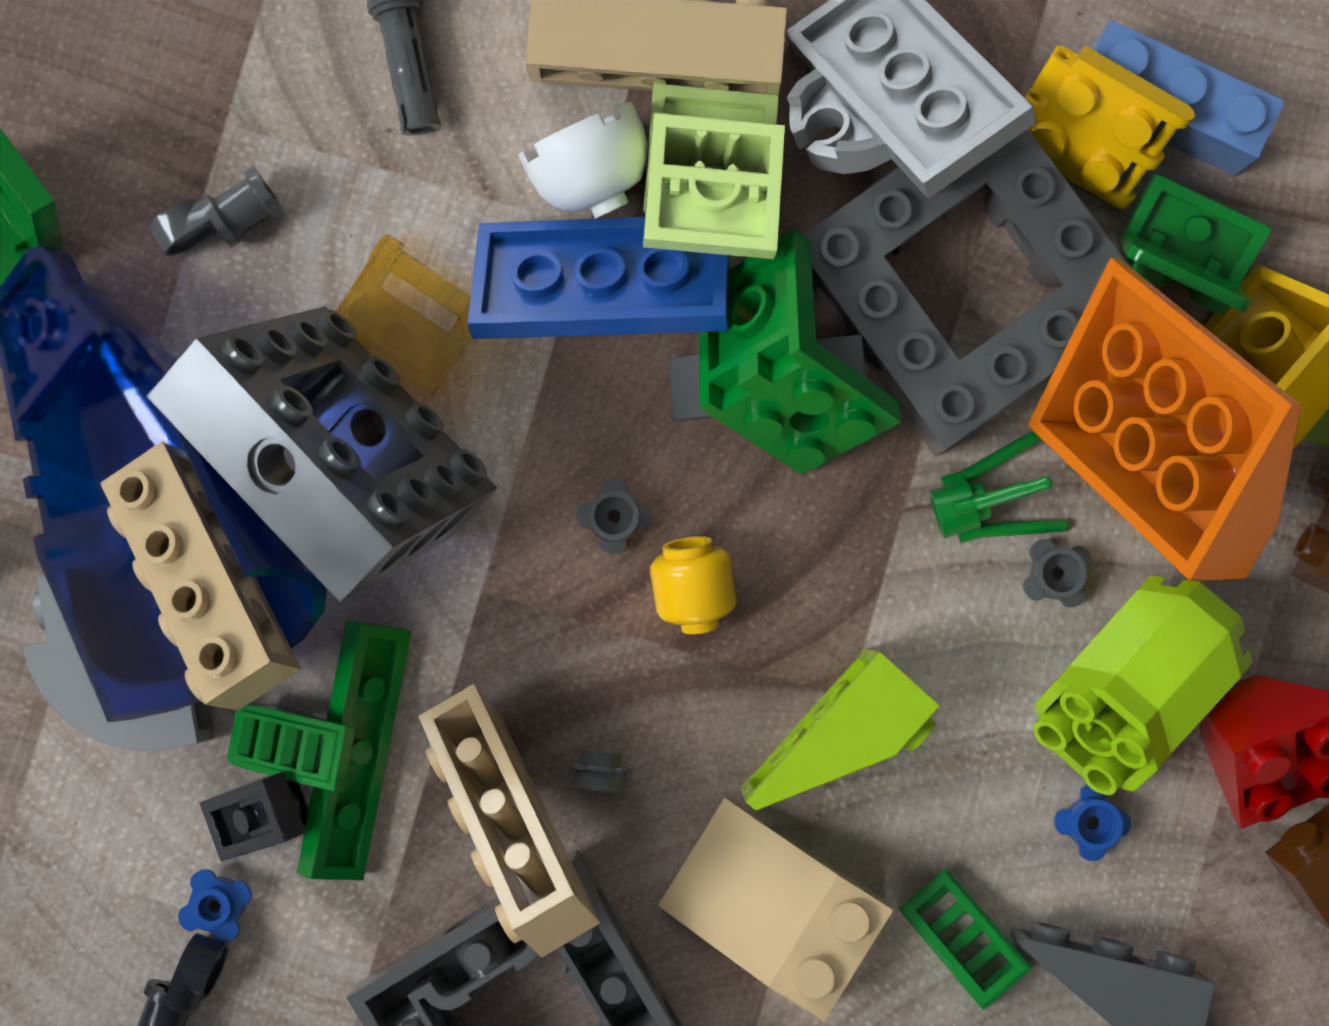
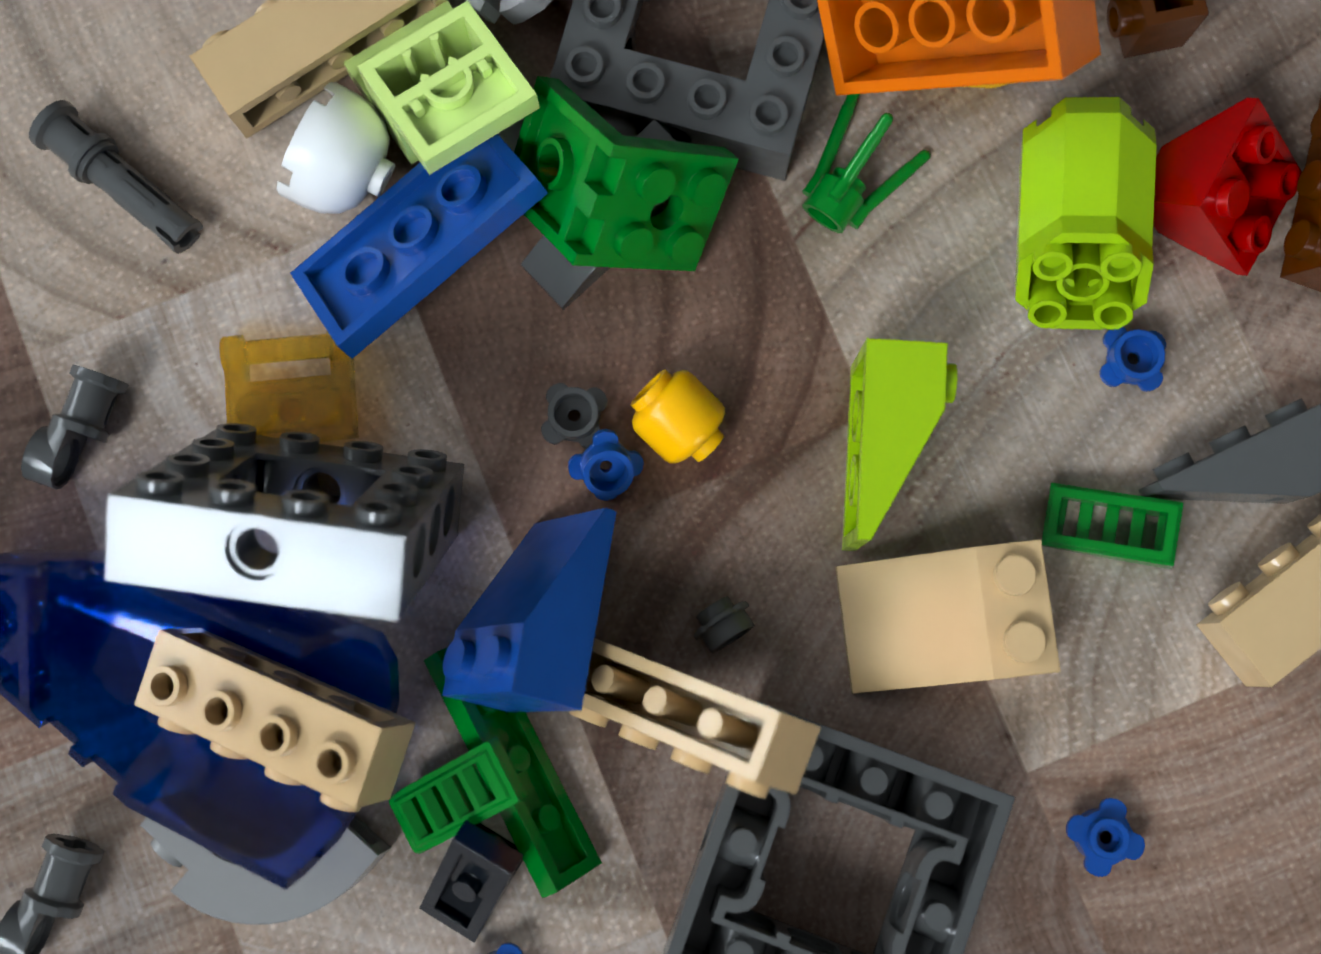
camera: 35 degrees left, 5 degrees down
(456, 659) = (536, 621): none -> blue slope
(602, 591) = (610, 482): none -> blue plate
(1071, 561) = (954, 175): dark grey plate -> none

